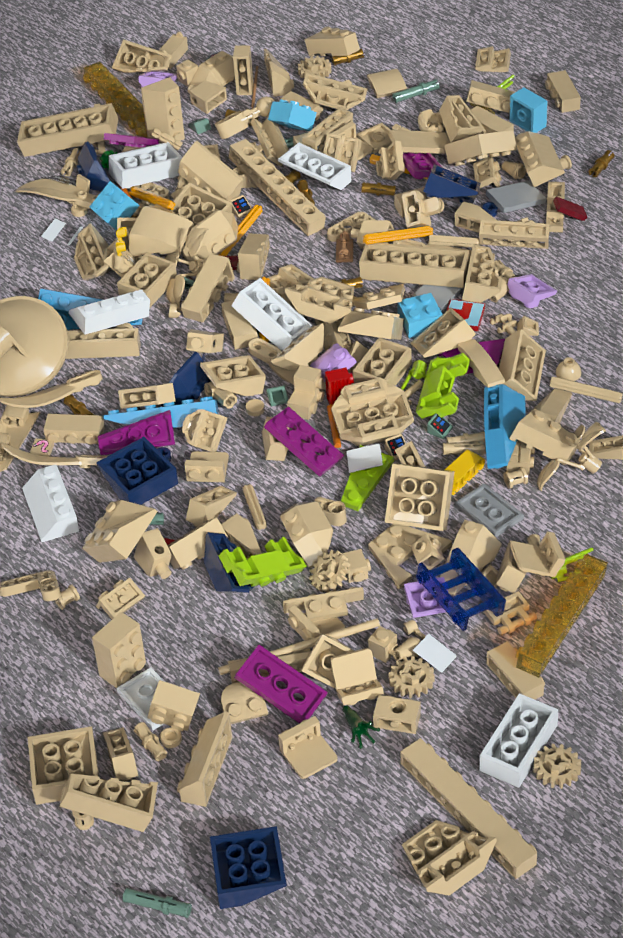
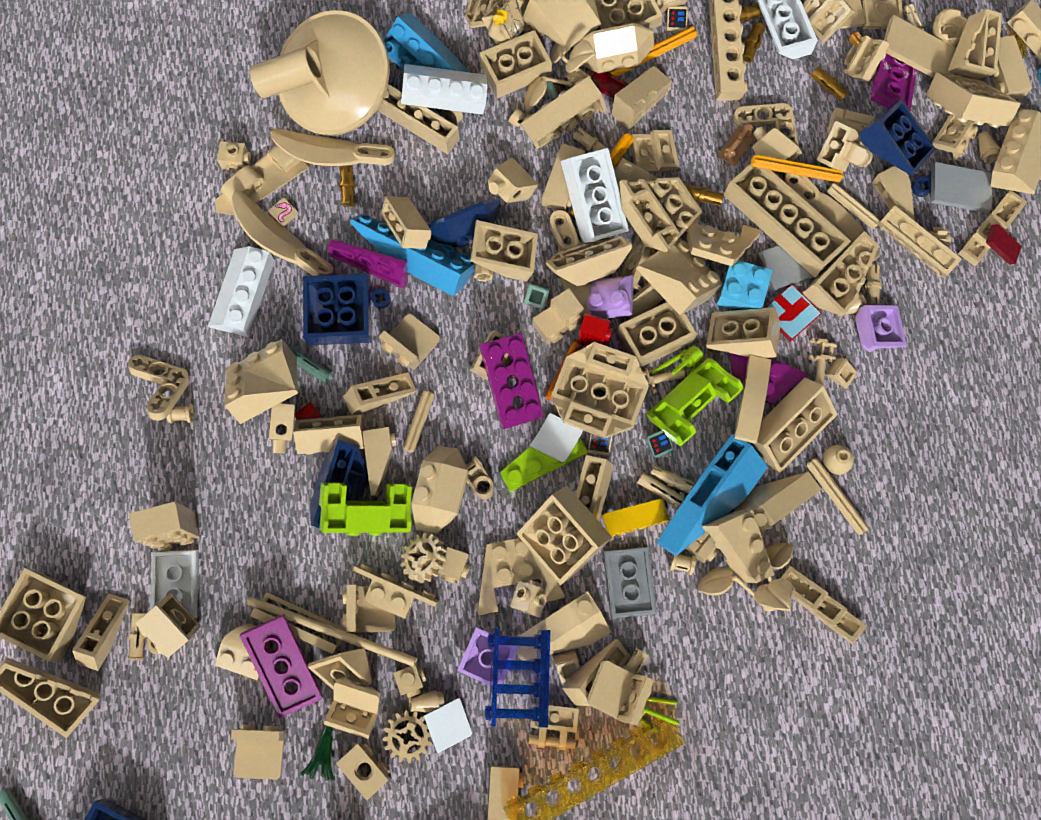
camera: 30 degrees right, 30 degrees up
(73, 428) = (322, 210): tan brick -> none
(121, 598) = (223, 449): tan bracket -> none
(204, 429) = (433, 298): tan slope -> none
(206, 760) = (161, 701): tan slope -> none
(254, 407) = (506, 295): tan tile -> none
(411, 626) = (452, 673): tan hand -> none

